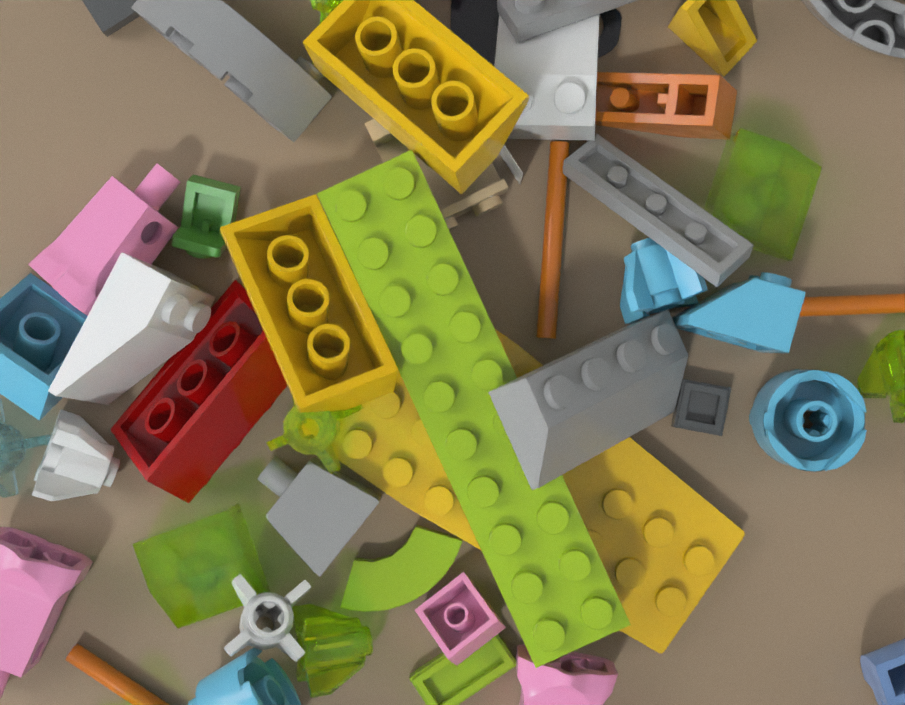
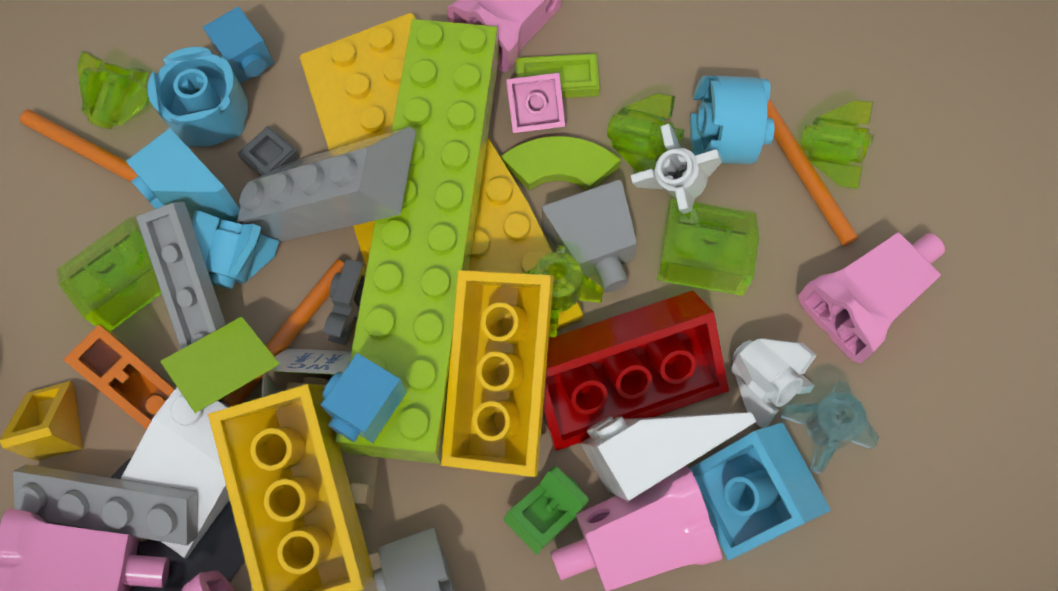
camera: 145 degrees left, 20 degrees down
(400, 190) = (362, 399): none -> dark azure brick
(496, 221) = (312, 361): none -> white sticker
(518, 310) = (346, 295): none -> dark grey plate
(571, 158) = (219, 364): none -> lime sticker
(811, 502) = (239, 44): none -> dark azure brick

